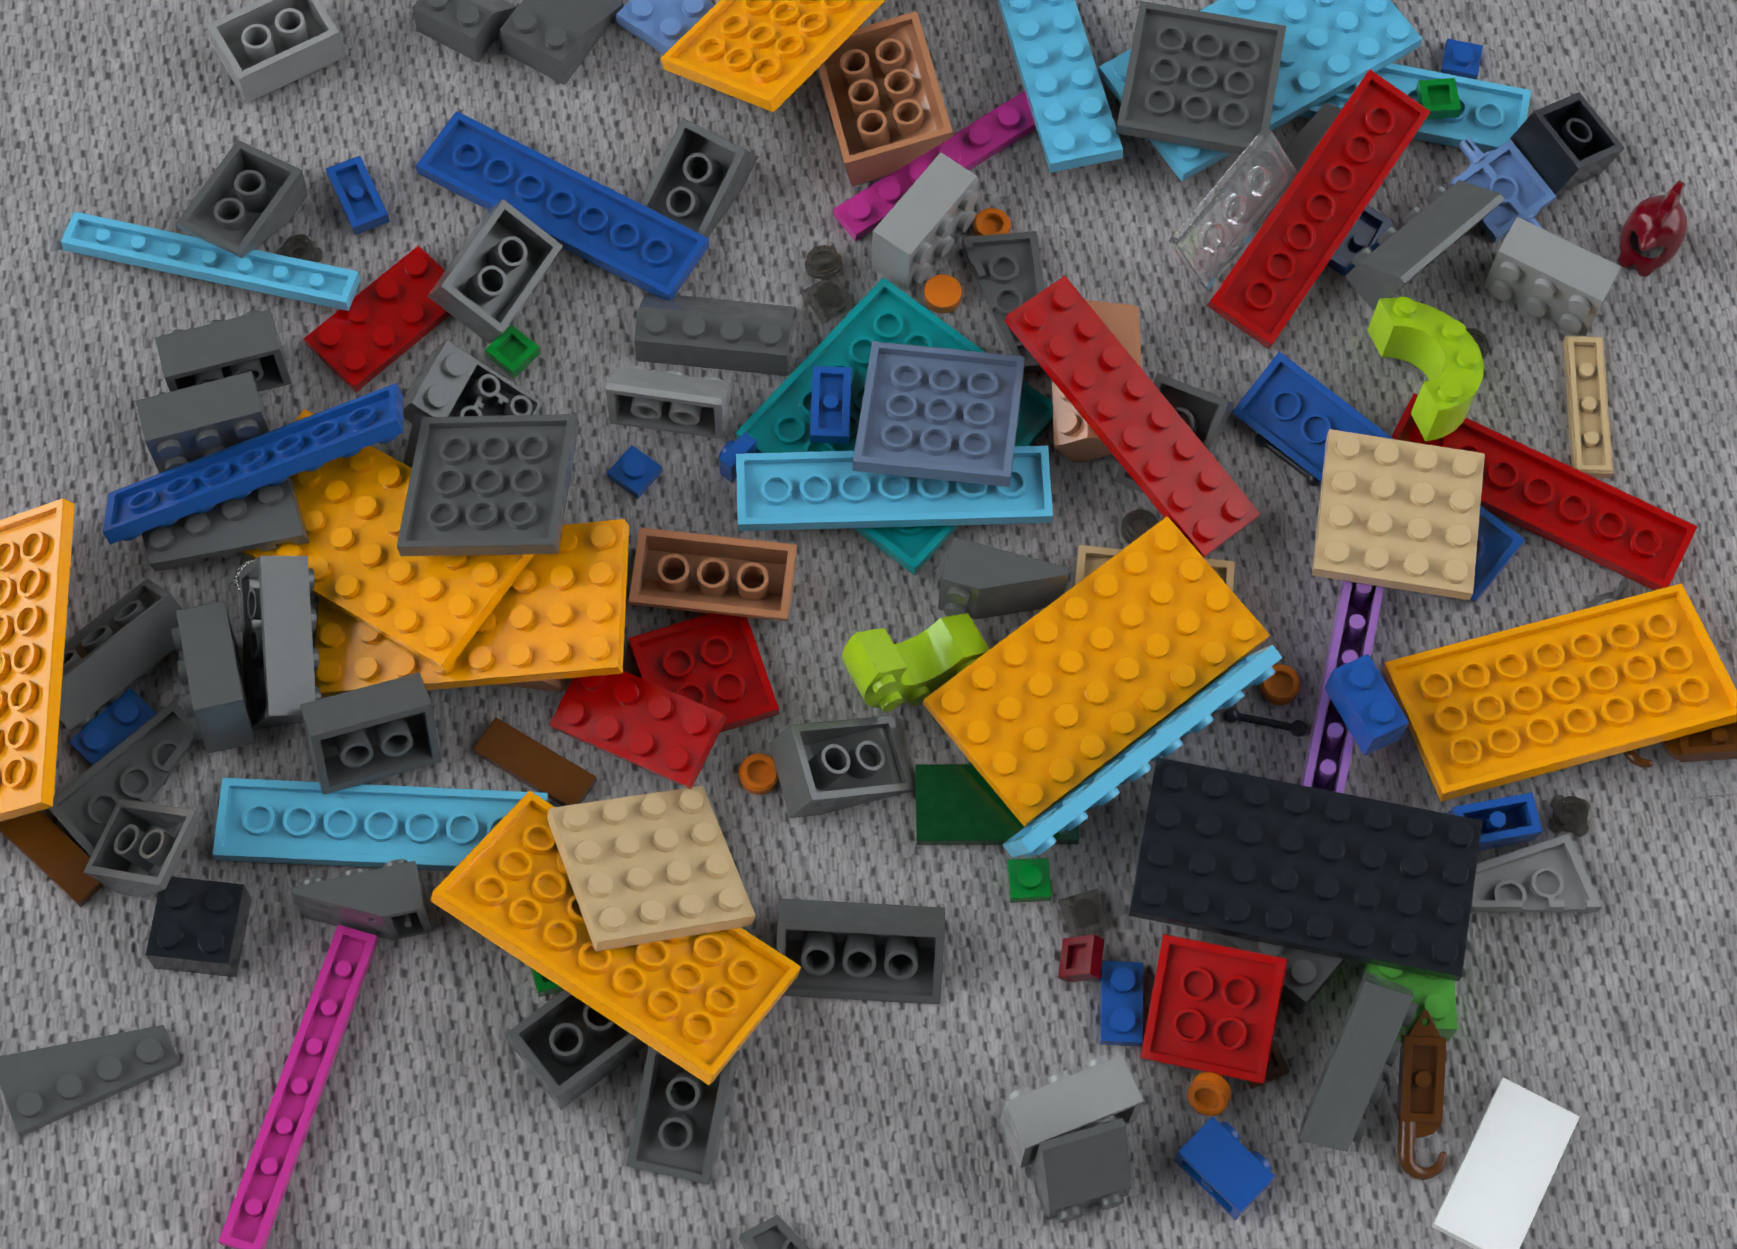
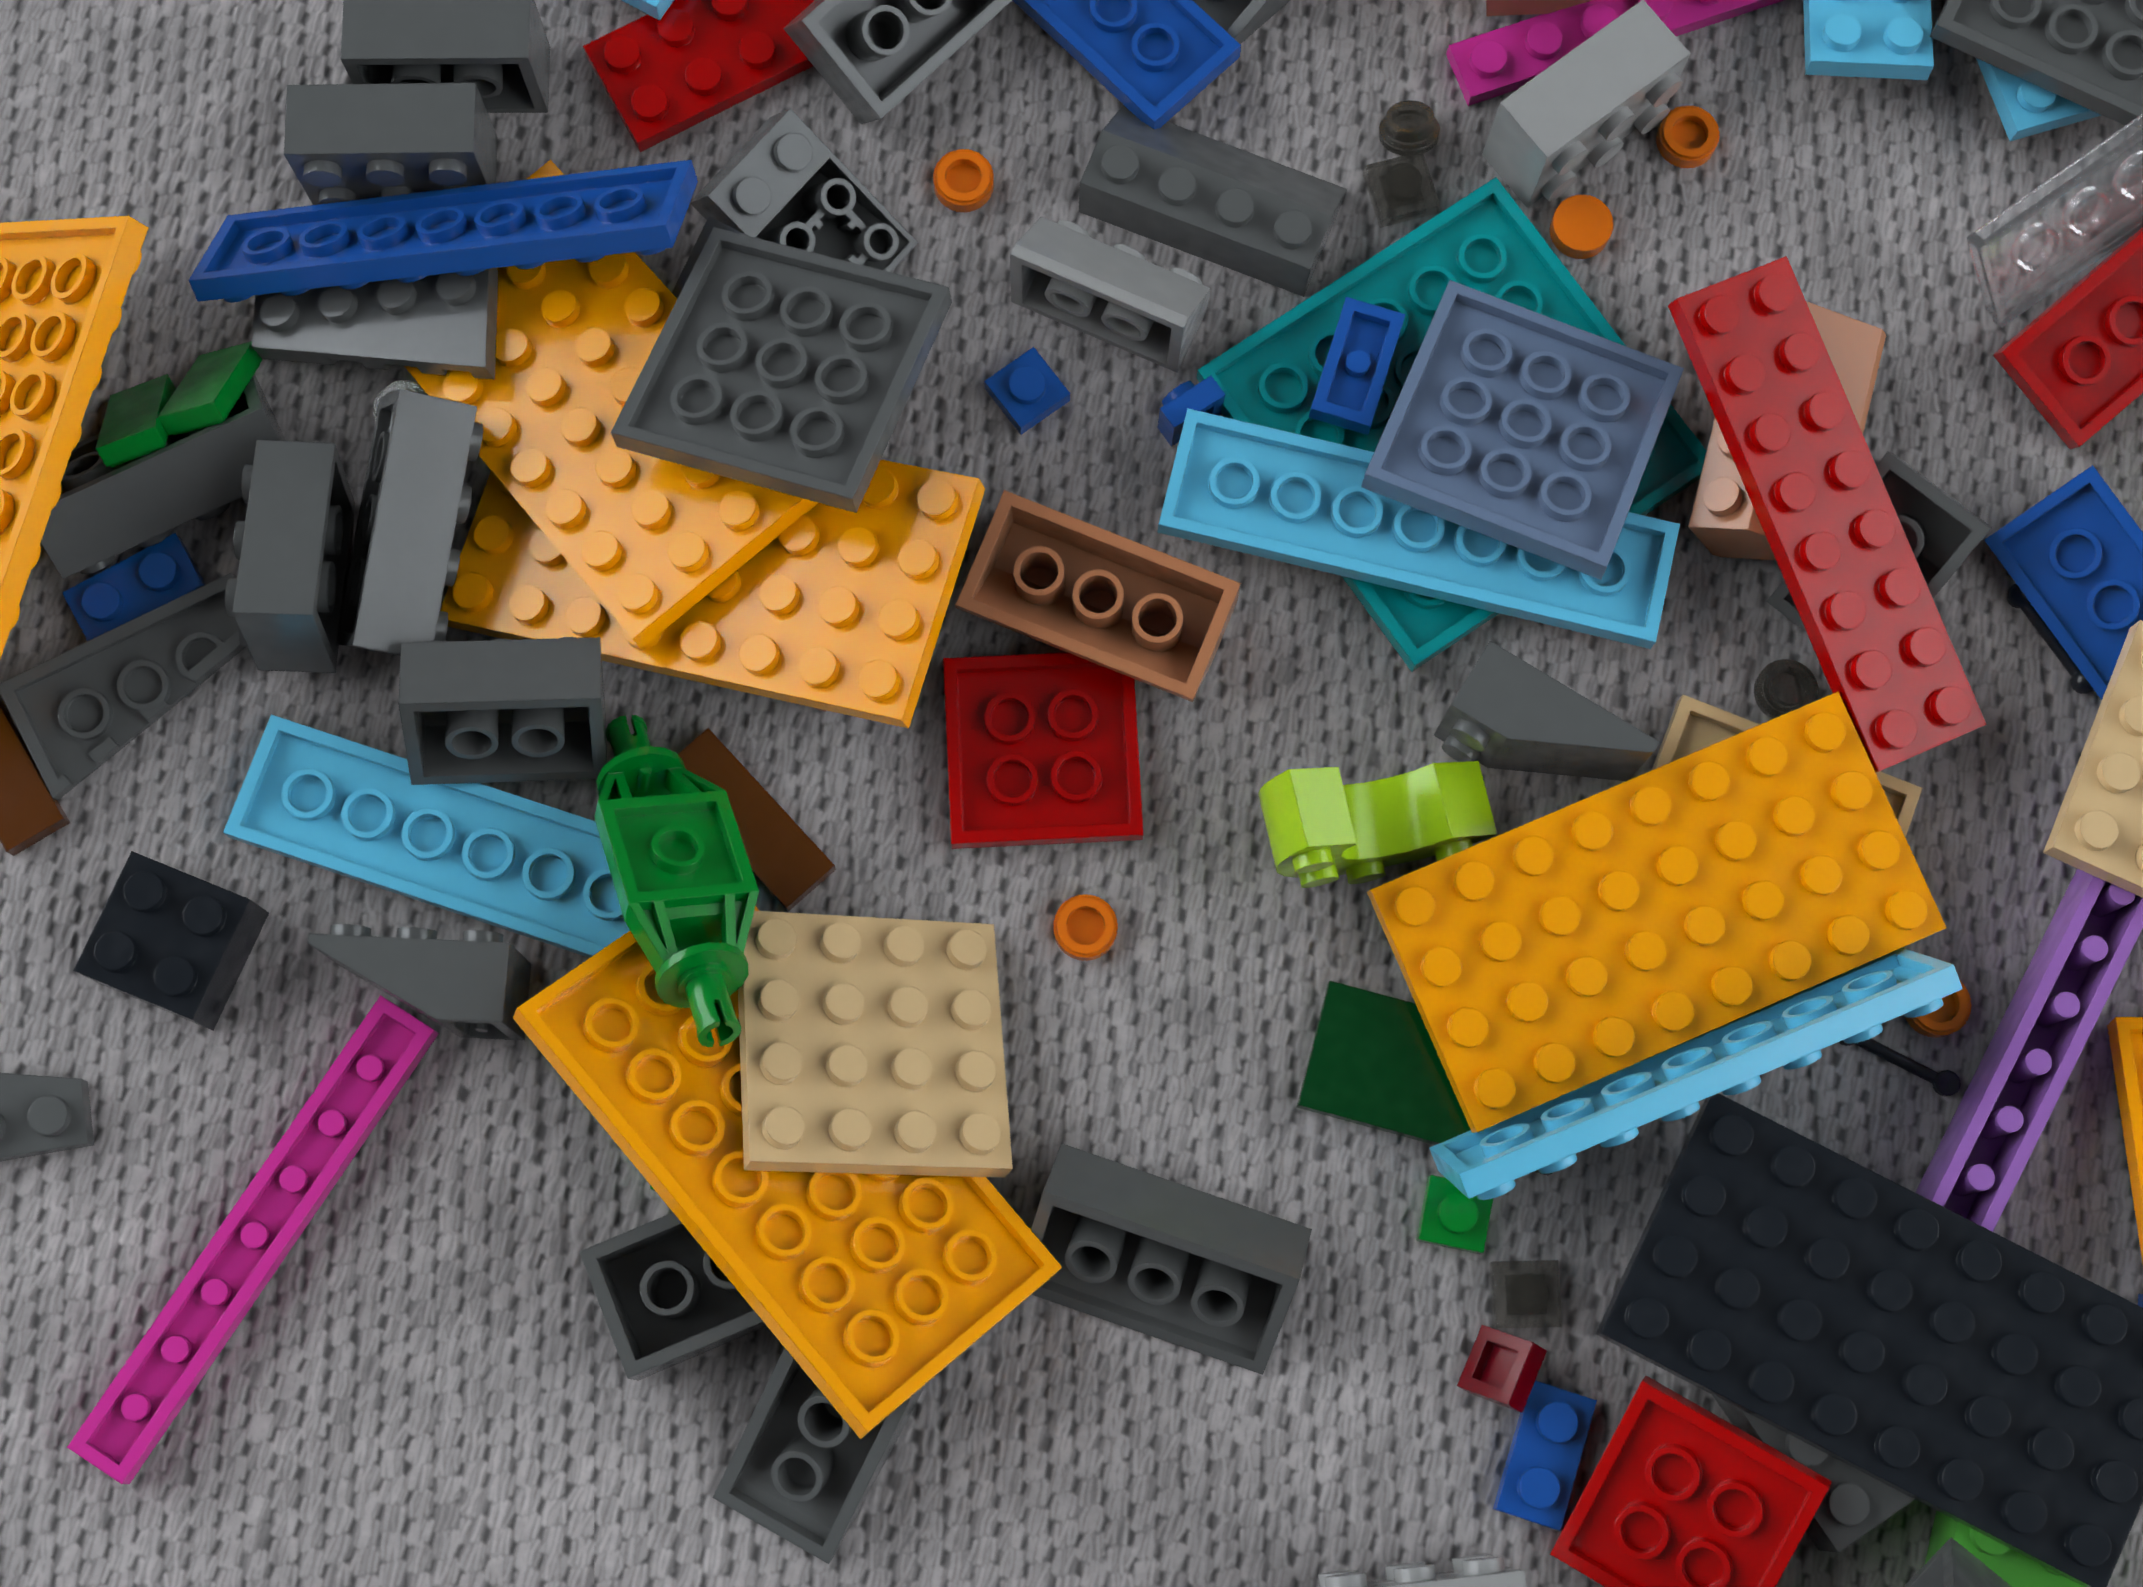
camera: 15 degrees right, 10 degrees up
(90, 625) = (132, 422): none -> green tile
(131, 594) = (210, 389): none -> green tile
(141, 847) = (108, 798): dark grey slope -> none
(507, 795) = (678, 875): none -> green plate
(512, 351) = (892, 149): green plate -> none
(560, 359) = (963, 180): none -> orange tile
(640, 724) = (925, 807): red plate -> none
(840, 764) = (1214, 950): dark grey slope -> none
(1008, 276) = (1692, 234): dark grey wing -> none
(1366, 704) = (2075, 1098): blue brick -> none

